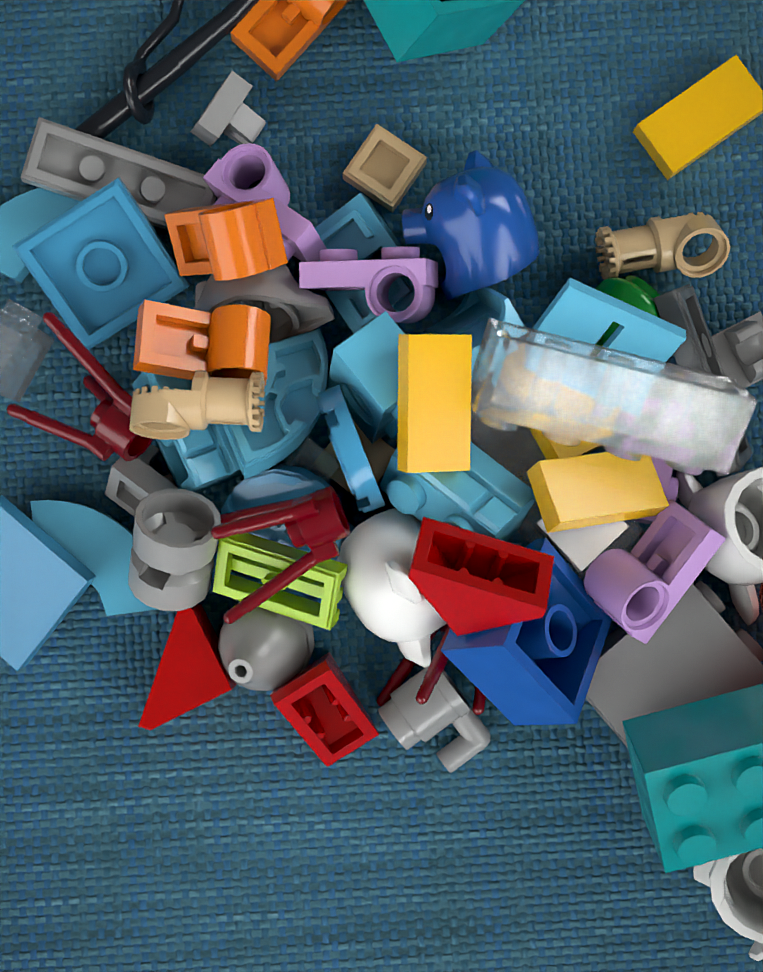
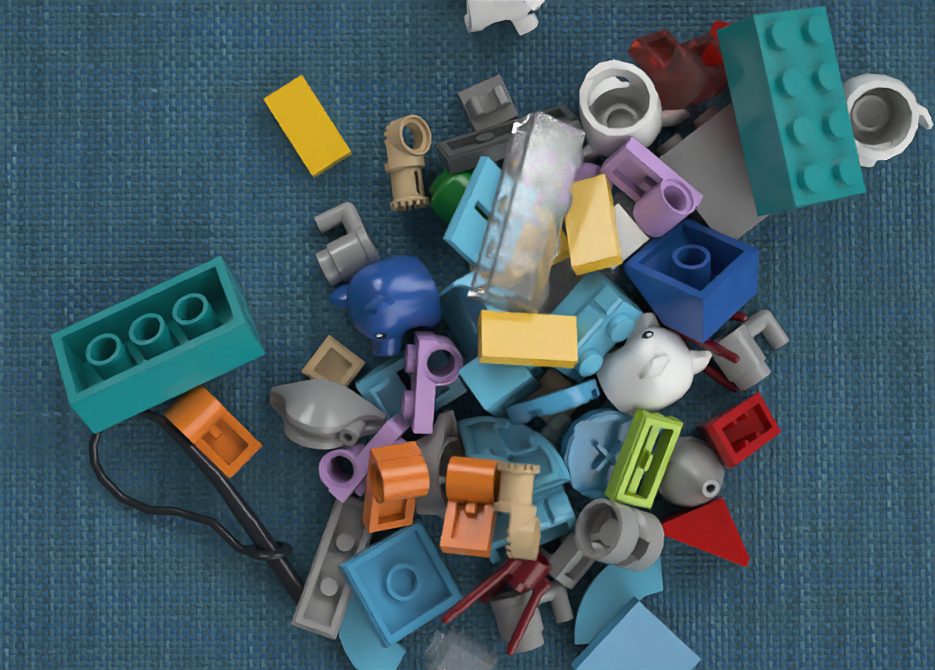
camera: 90 degrees left, 0 degrees up
(74, 409) = (511, 604): none -> light grey piece
(229, 114) = (289, 485): light grey tile -> none
(309, 521) = (605, 432): dark red plant -> none
(320, 152) = (324, 413): none -> light grey hat
(478, 578) = (654, 314): red slope -> none
(540, 173) = (348, 253): none -> light grey piece

